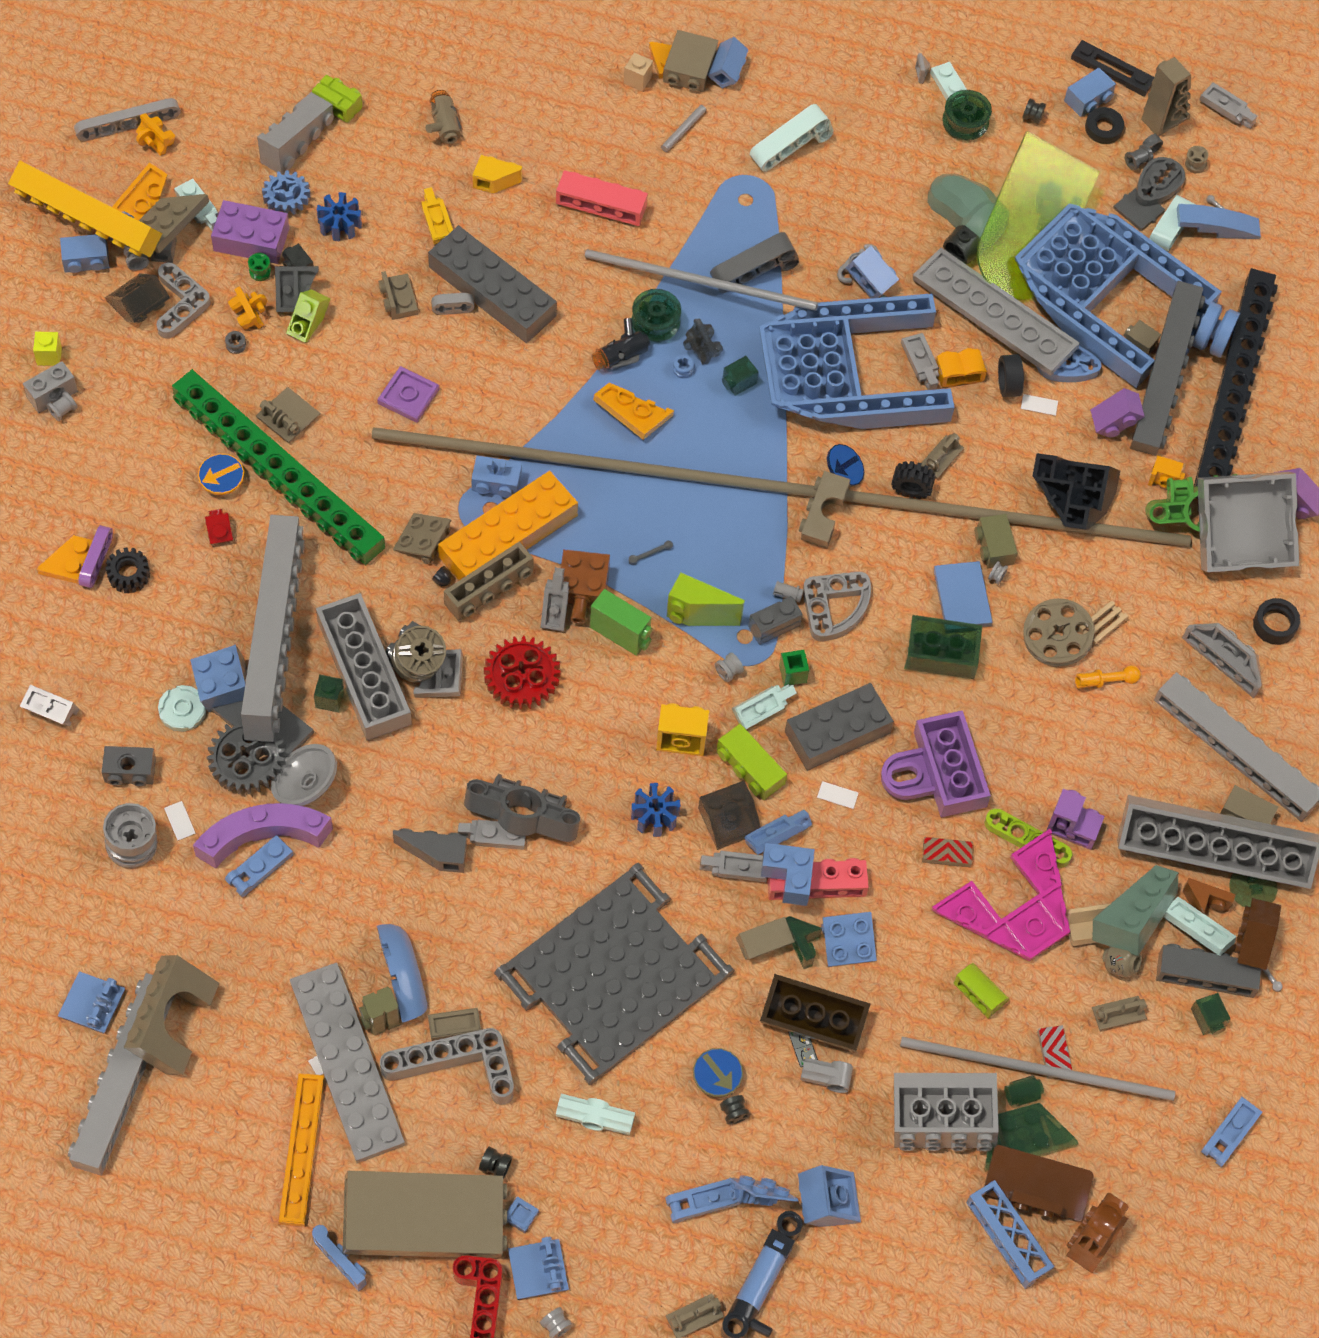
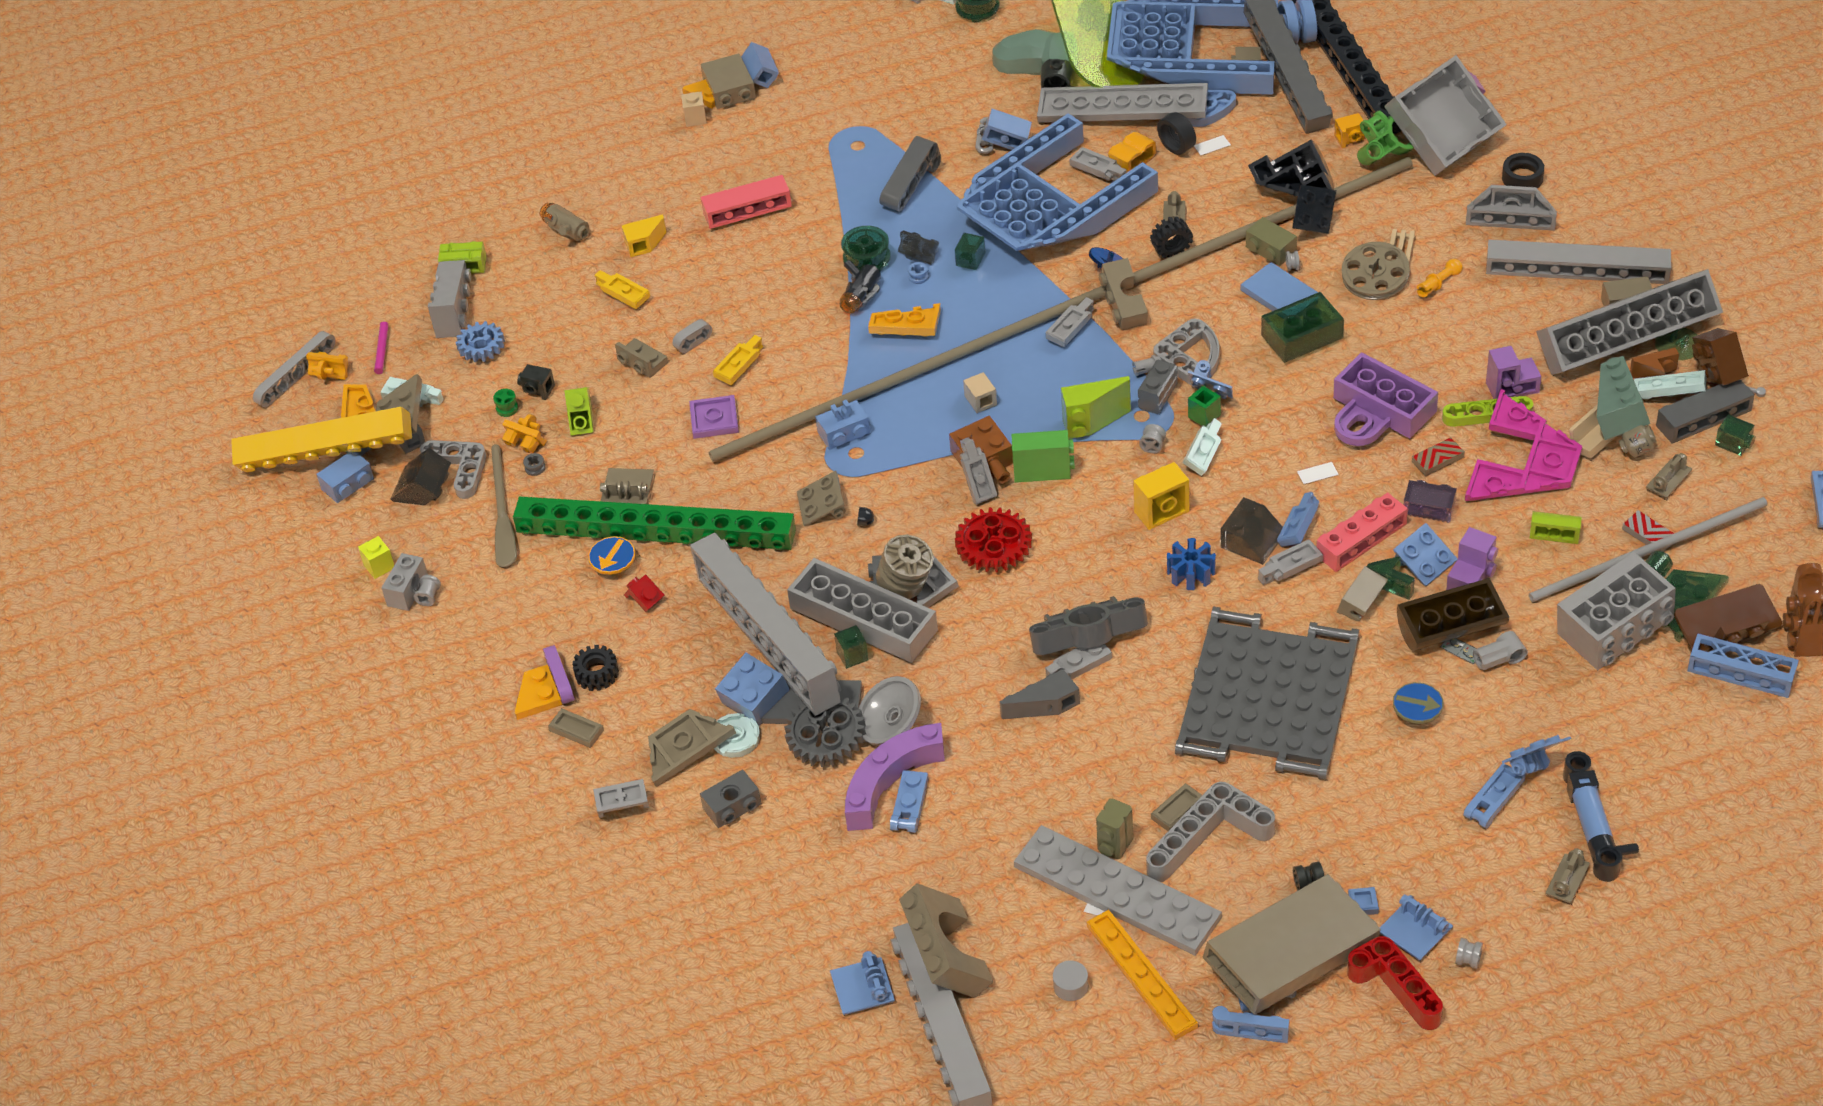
camera: 25 degrees left, 15 degrees down
(72, 614) = (575, 728): none -> dark tan tile
(128, 823) = (783, 841): light grey wheel -> none
(135, 262) = (393, 454): light grey wheel -> none
(135, 688) = (684, 742): none -> dark tan wing
(158, 398) = (504, 536): none -> dark tan piece
(179, 820) = (809, 814): white sticker -> none
(212, 141) = (381, 348): none -> dark pink bar
(242, 1115) = (1070, 980): none -> light grey piece
(250, 230) = (474, 381): medium lavender brick -> none
(289, 284) = (549, 395): dark grey wing -> none
(339, 216) = (541, 332): blue gear -> none
(403, 965) = (1087, 783): medium blue brick -> none
(470, 353) = (738, 360): none -> yellow hinge
(488, 581) = (907, 493): dark tan brick -> none
(493, 283) = (718, 302): dark grey brick -> none
(522, 517) = (888, 452): light orange brick -> none
(595, 1114) = (1352, 793): light aqua piece -> none
(629, 522) = (980, 392): none -> tan brick
(634, 559) = (1005, 416): dark grey hinge -> none
(686, 125) = (763, 127): light grey bar -> none
(703, 280) = (878, 206): light grey piece -> none
(735, 1109) = (1456, 719): pearl dark grey wheel -> none
(751, 762) = (1229, 486): lime brick -> none
(762, 505) = (1070, 322): none -> light grey hinge
(791, 865) = (1343, 523): medium blue brick -> none
(792, 136) = (863, 68): light aqua beam -> none
(812, 640) = (1202, 377): none -> medium blue hinge
(828, 1197) = (1586, 728): medium blue slope -> none
(838, 726) = (1275, 425): dark grey brick -> none
(875, 980) = (1475, 559): none -> medium lavender brick
(899, 890) = (1430, 500): none -> brick
(1053, 537) = (1314, 209): none -> black hinge
(1117, 413) = (1279, 110): medium lavender brick -> none

